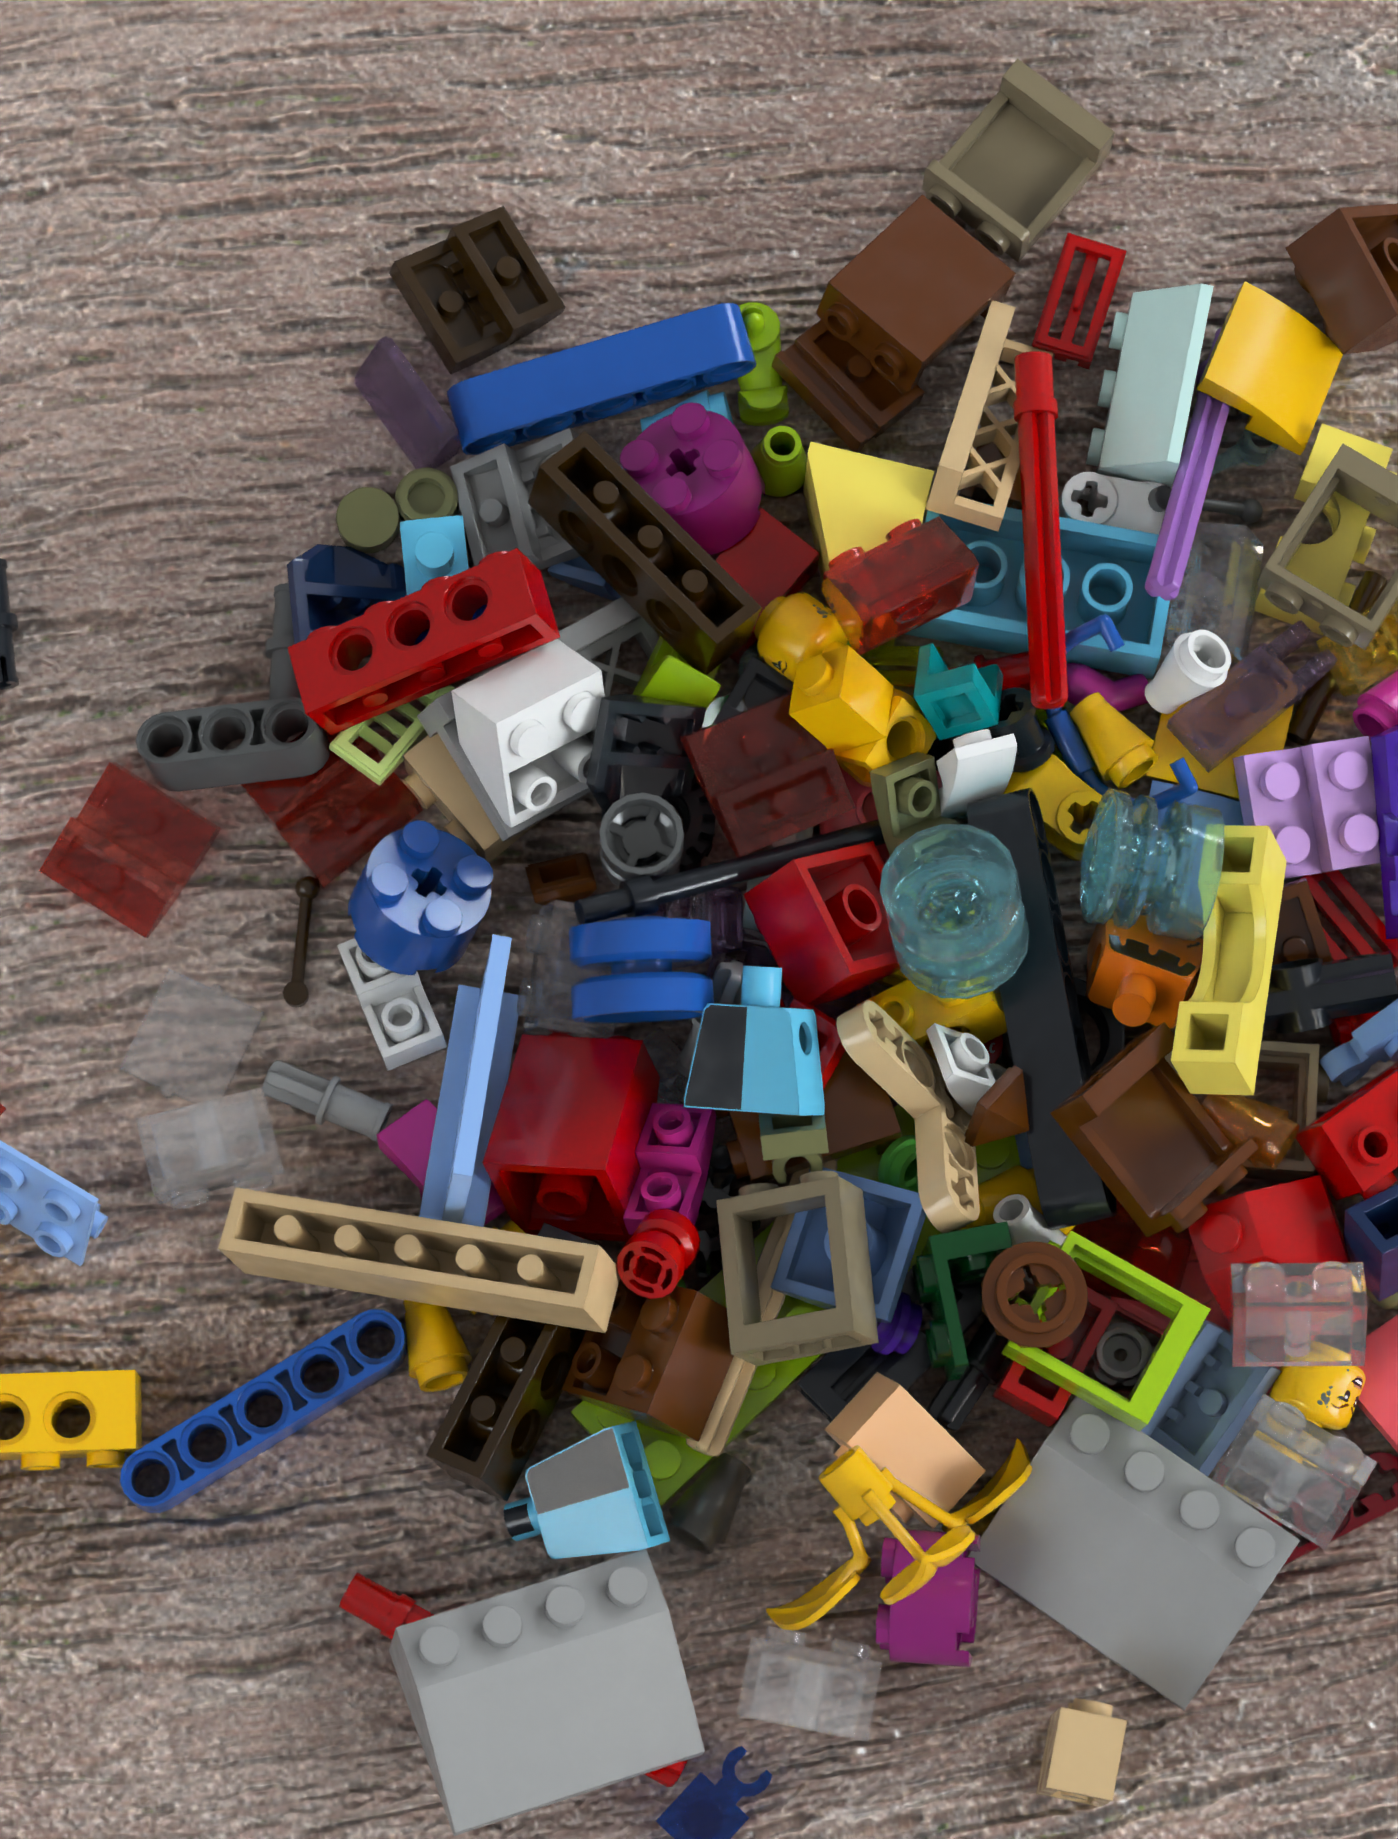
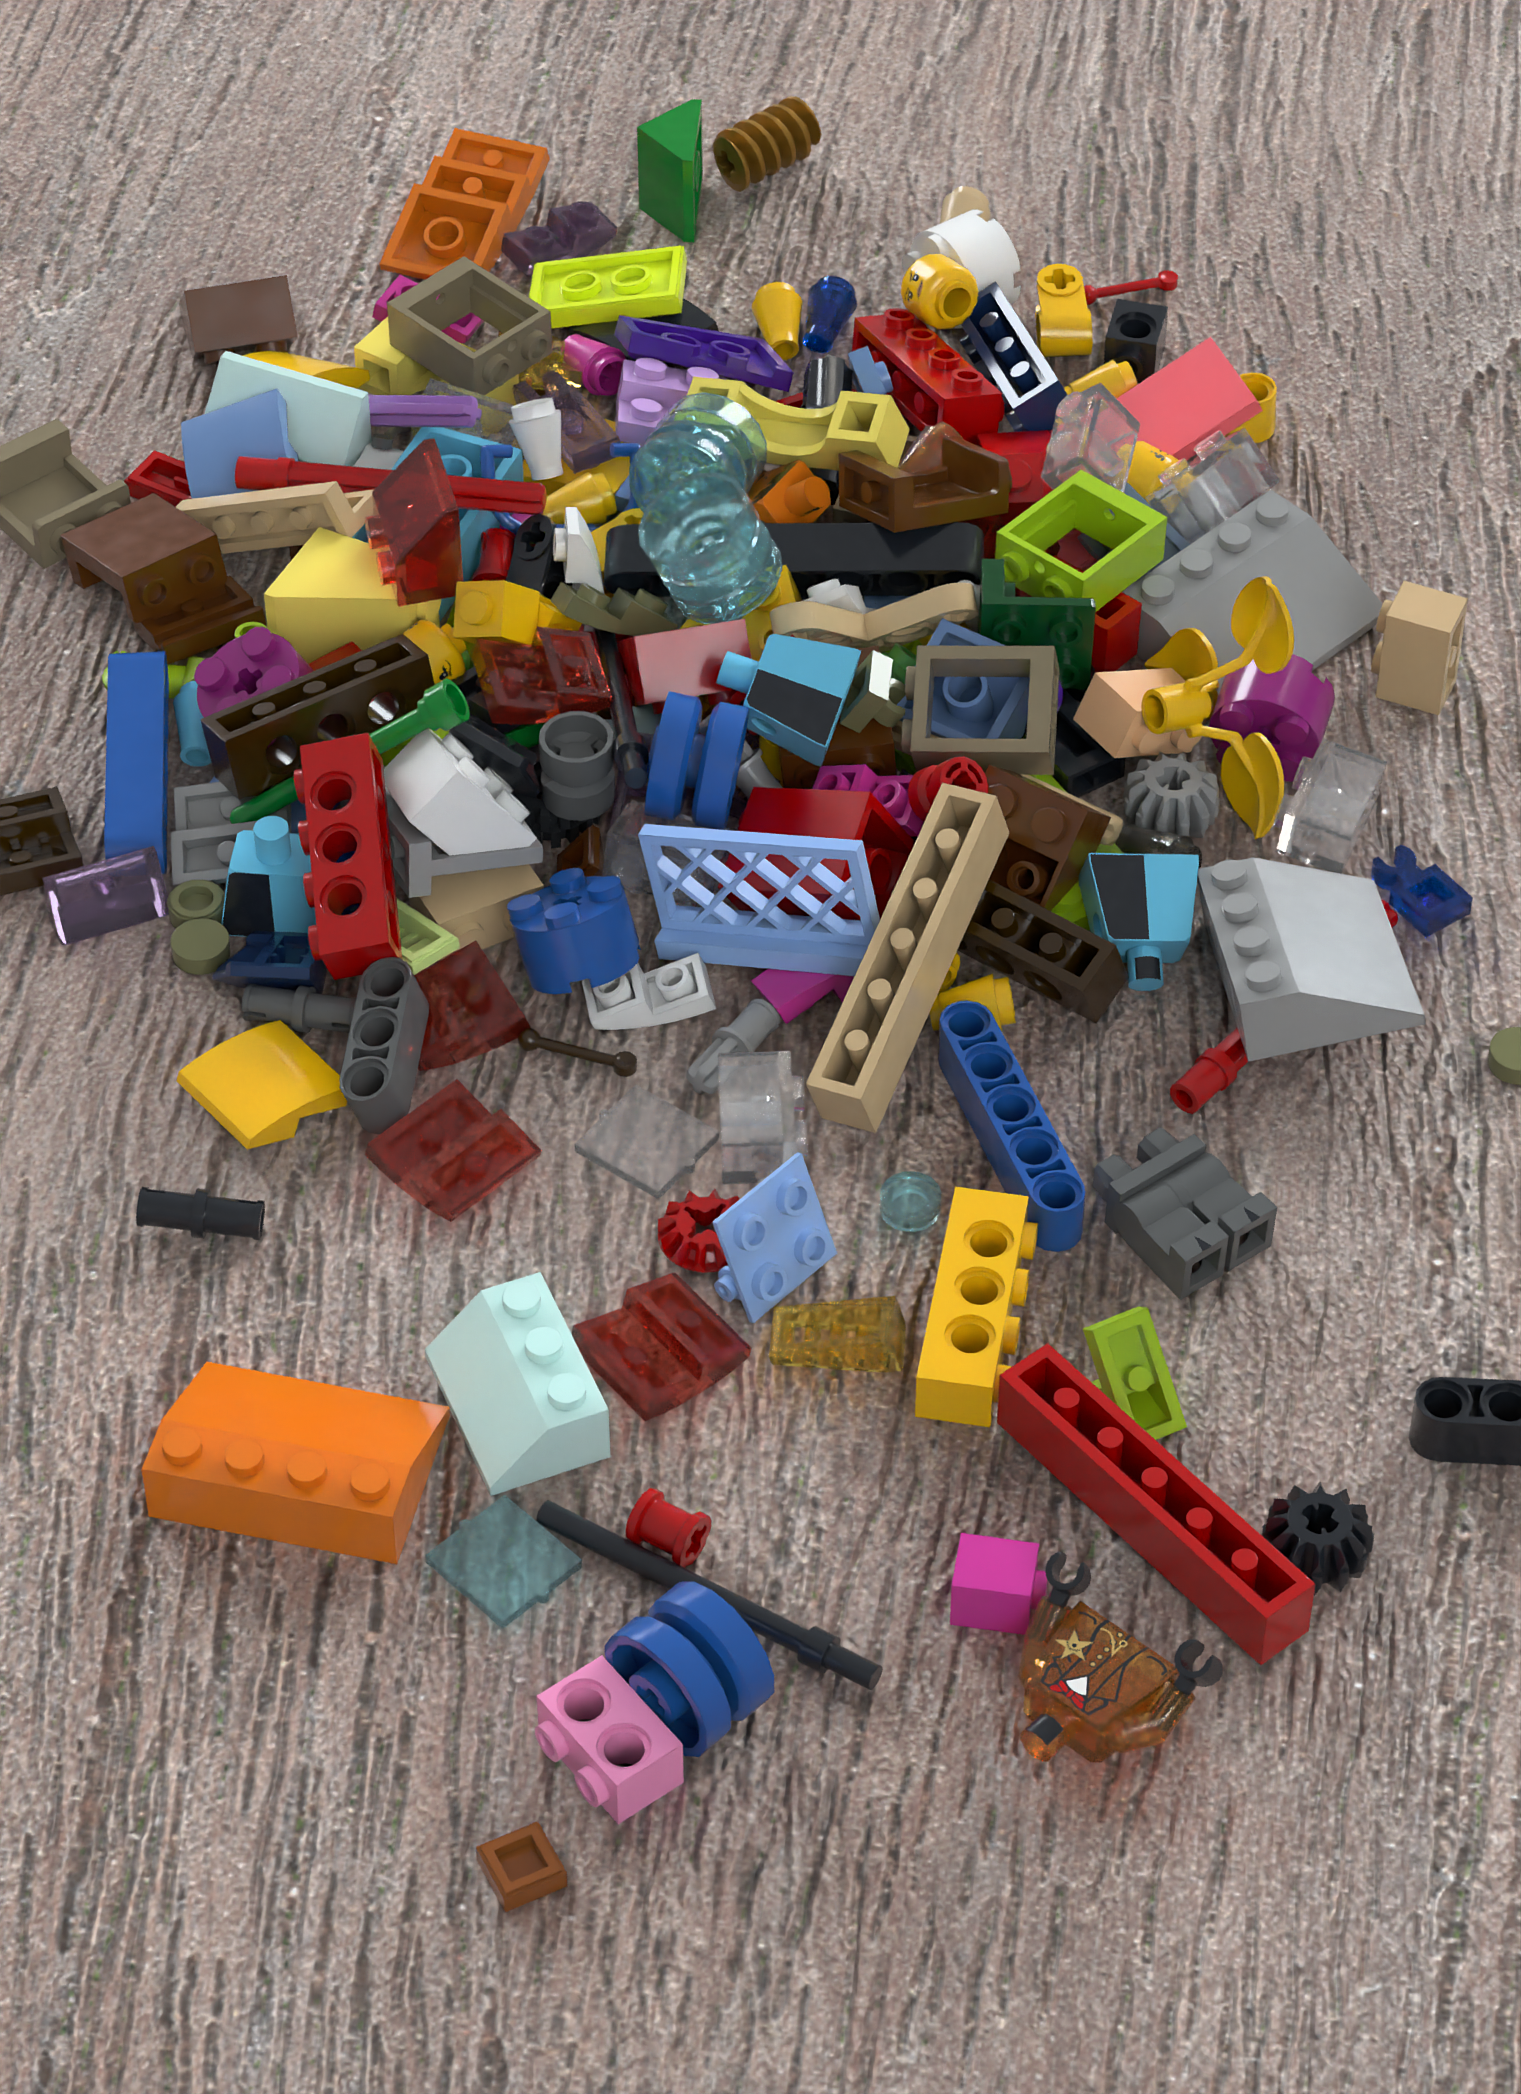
camera: 75 degrees left, 30 degrees down
(81, 1156) = (679, 1237): none -> red gear
(153, 1327) = (910, 1201): none -> clear light blue tile
(179, 635) = (262, 1084): none -> yellow slope
(180, 1588) = (1183, 1211): none -> dark grey hips
(601, 678) = (440, 708): none -> green piece
(789, 1525) = (1172, 796): none -> light grey gear
(957, 698) = (516, 557): teal panel -> none
(1000, 1110) = (877, 579): reddish brown slope -> none
(1046, 1267) = (1067, 545): reddish brown gear -> none
(1093, 344) = (218, 438): none -> medium blue slope

